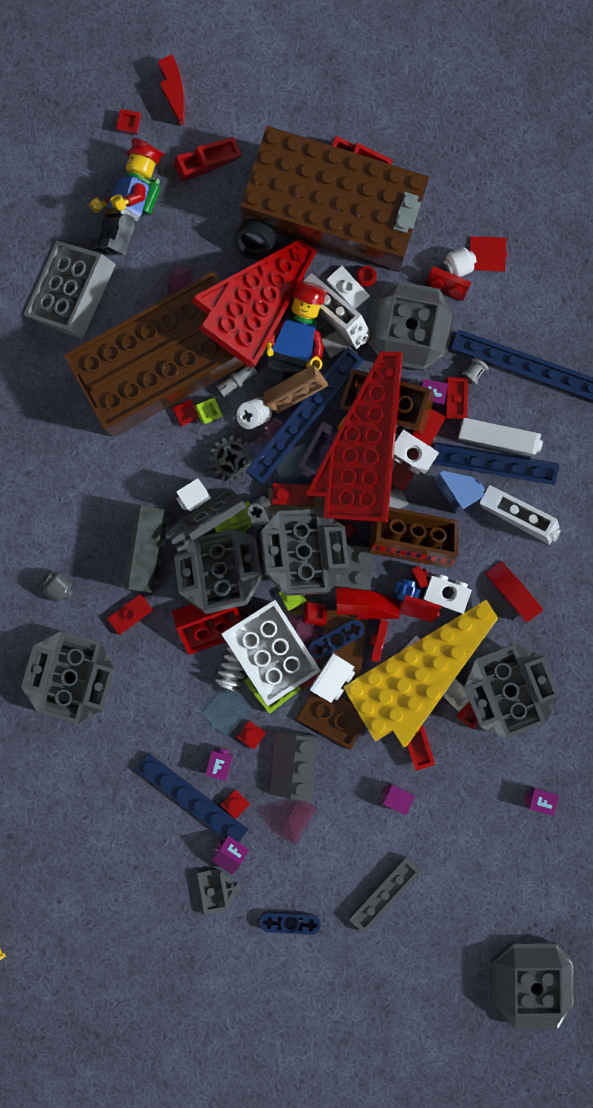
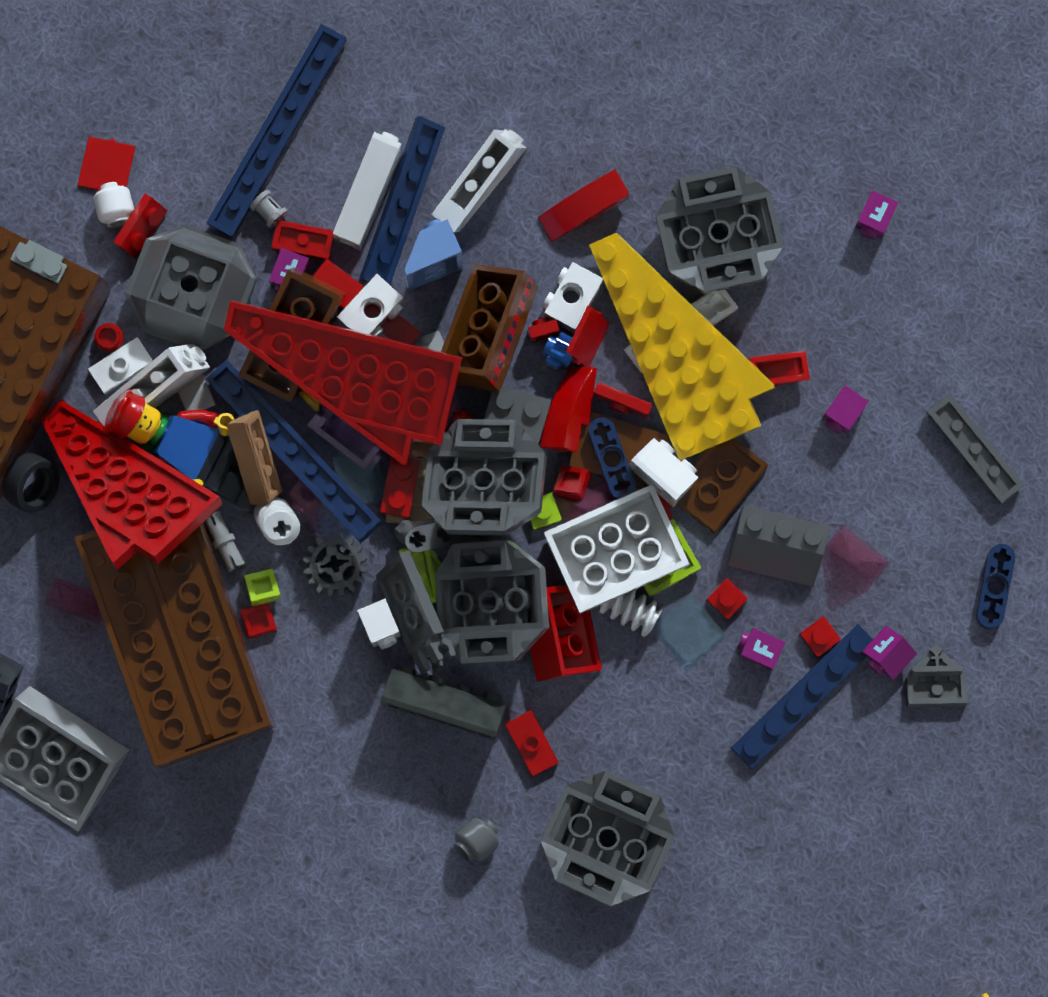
camera: 90 degrees left, 5 degrees down
(467, 716) = (745, 295): red plate -> none

